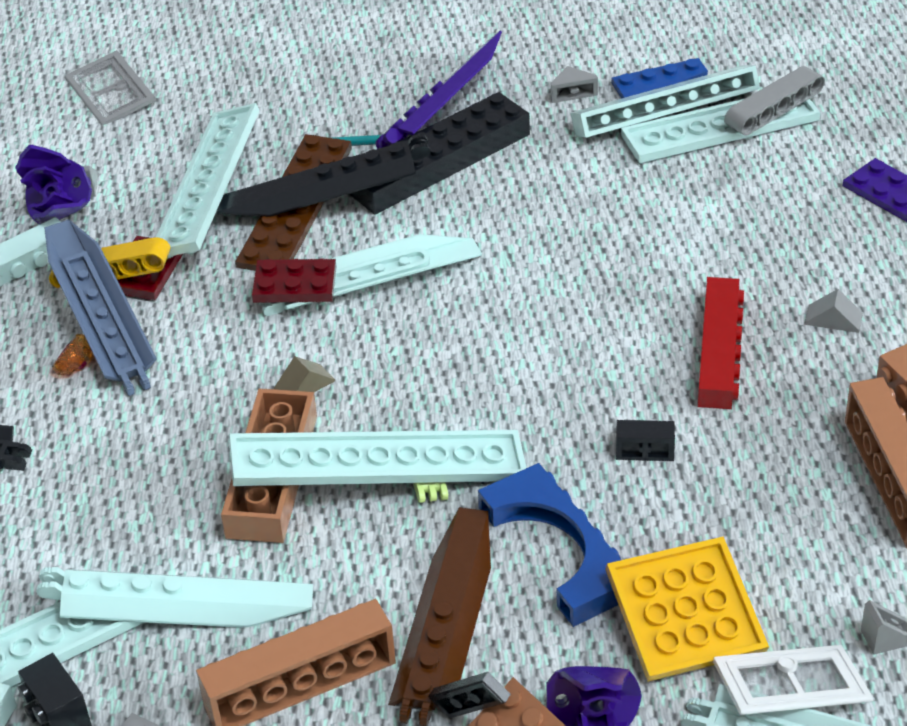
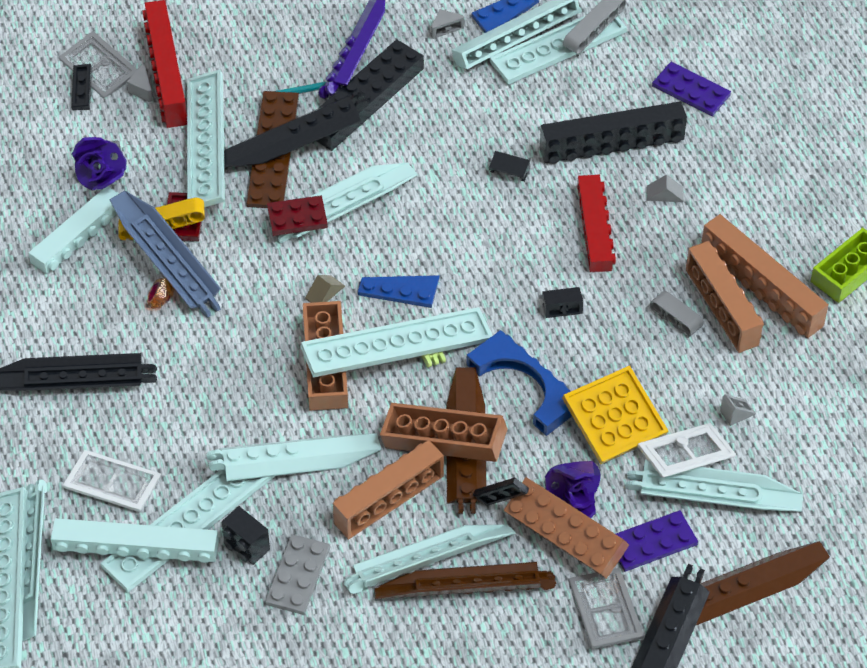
camera: 15 degrees left, 10 degrees up
(77, 109) = (81, 87): none -> black tile
(150, 112) = (139, 84): none -> light grey slope
(187, 91) = (165, 64): none -> red brick
(412, 592) = (450, 431): none -> nougat brick
(417, 395) = (401, 289): none -> blue wing
(614, 255) = (510, 165): none -> black hinge
(771, 229) = (612, 132): none -> black brick
(818, 477) = (677, 313): none -> light grey beam

